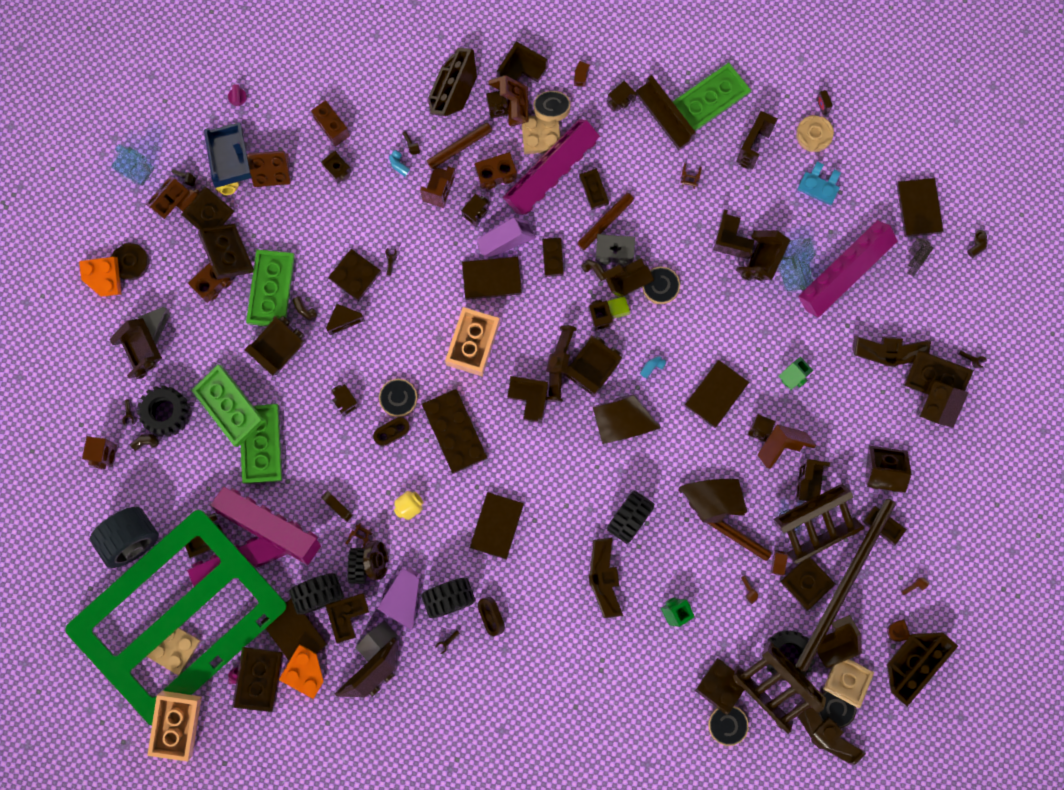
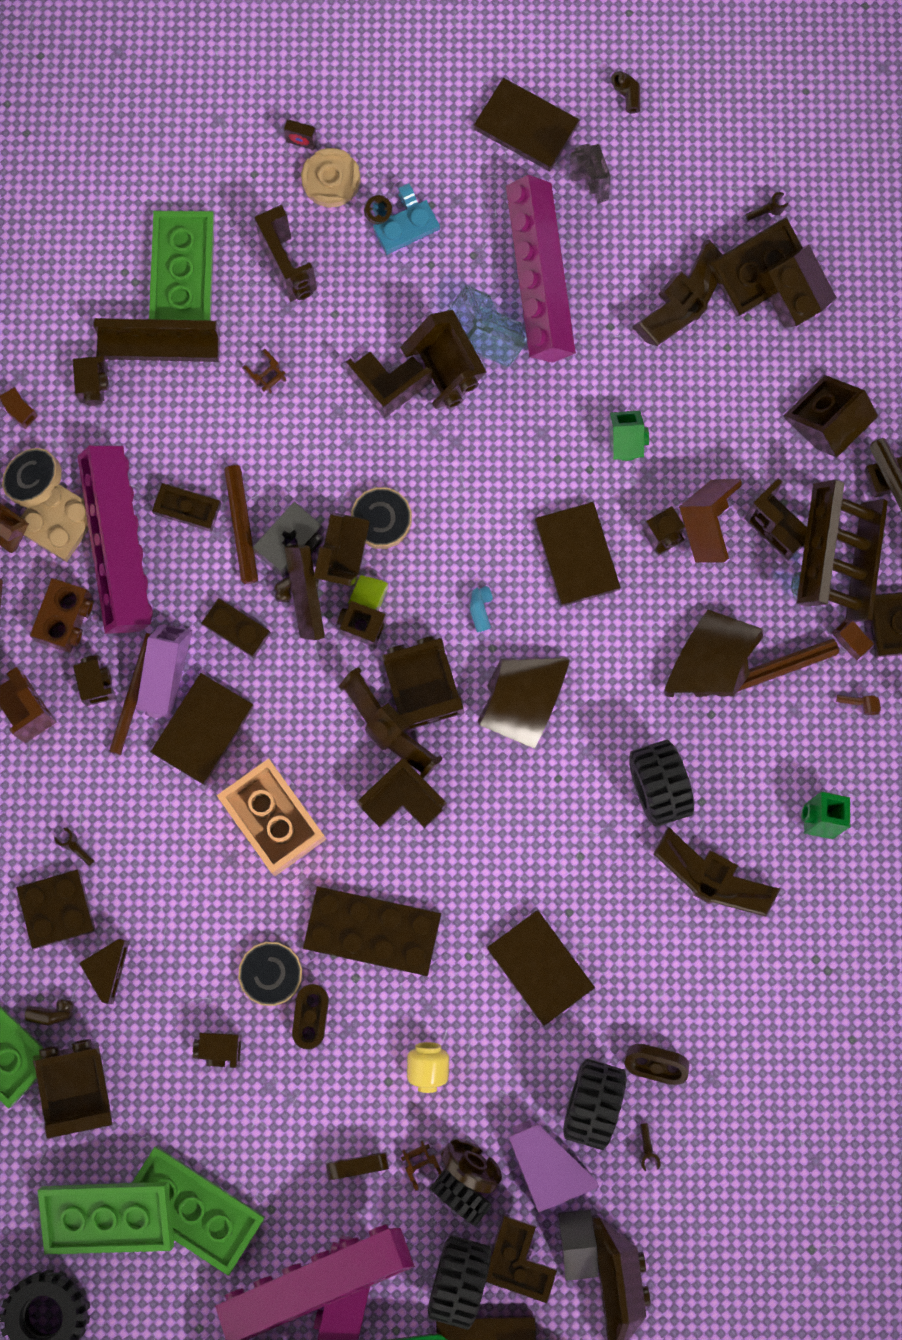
camera: 55 degrees left, 0 degrees up
(472, 237) = (129, 704): none -> reddish brown bar
(594, 275) = (304, 592): none -> dark brown tile
(810, 171) = (377, 199): none -> dark brown bush

